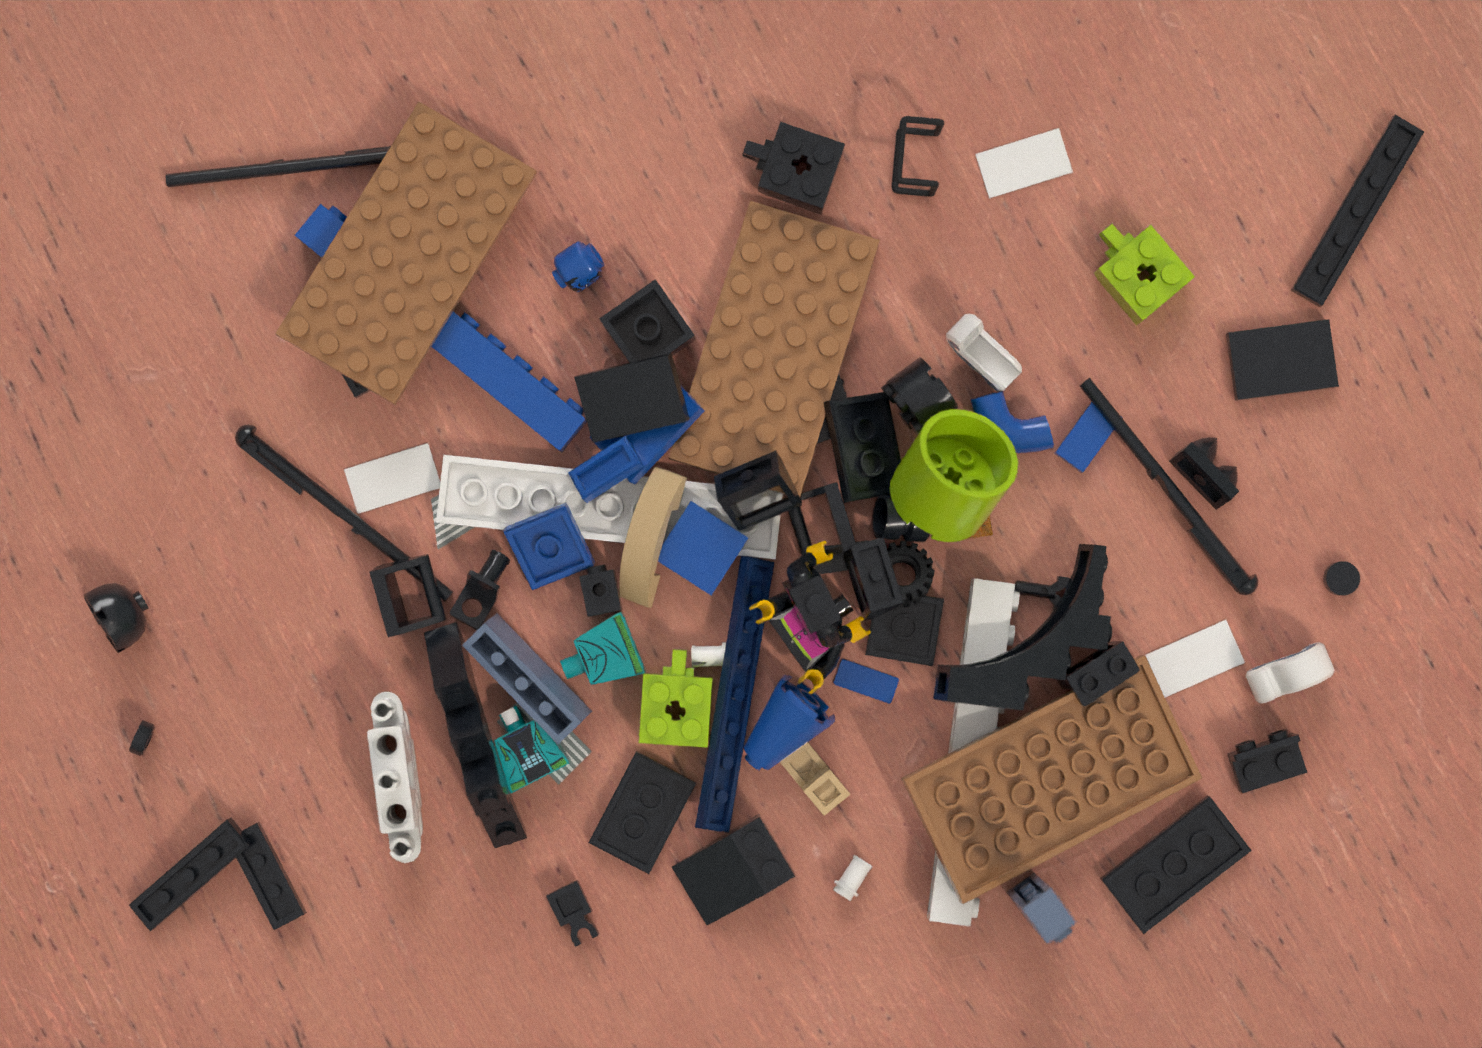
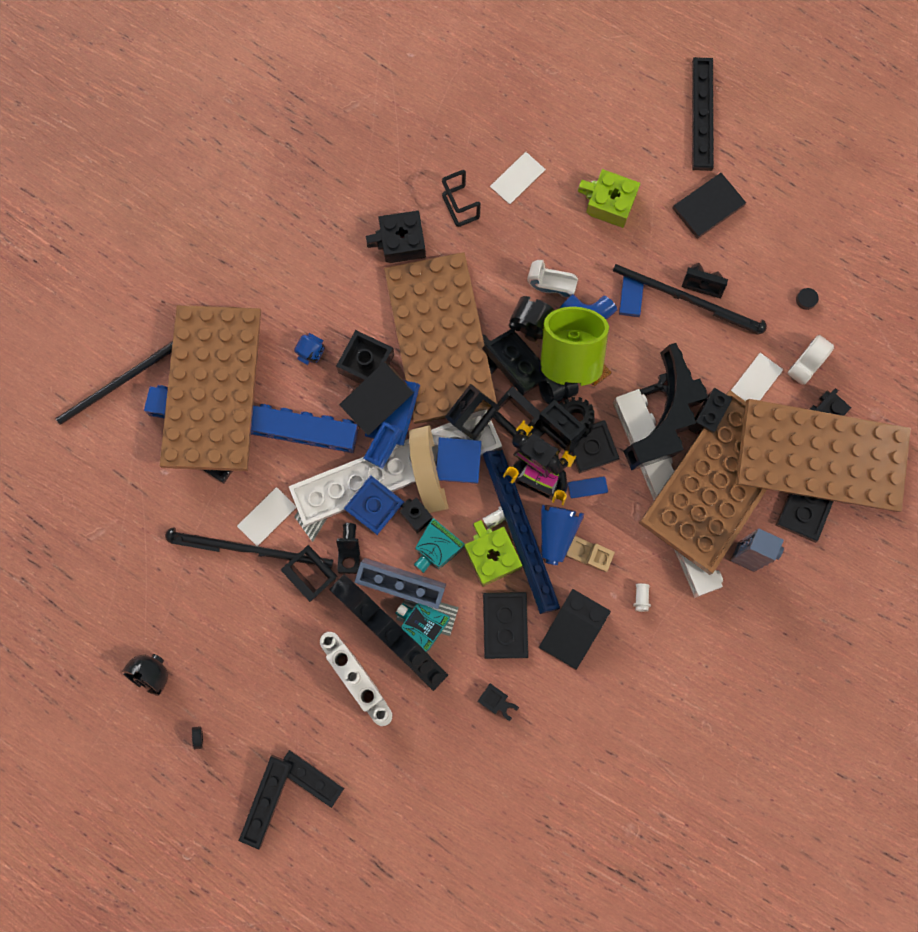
camera: 30 degrees left, 10 degrees down
(1221, 821) = (823, 455): none -> medium nougat plate

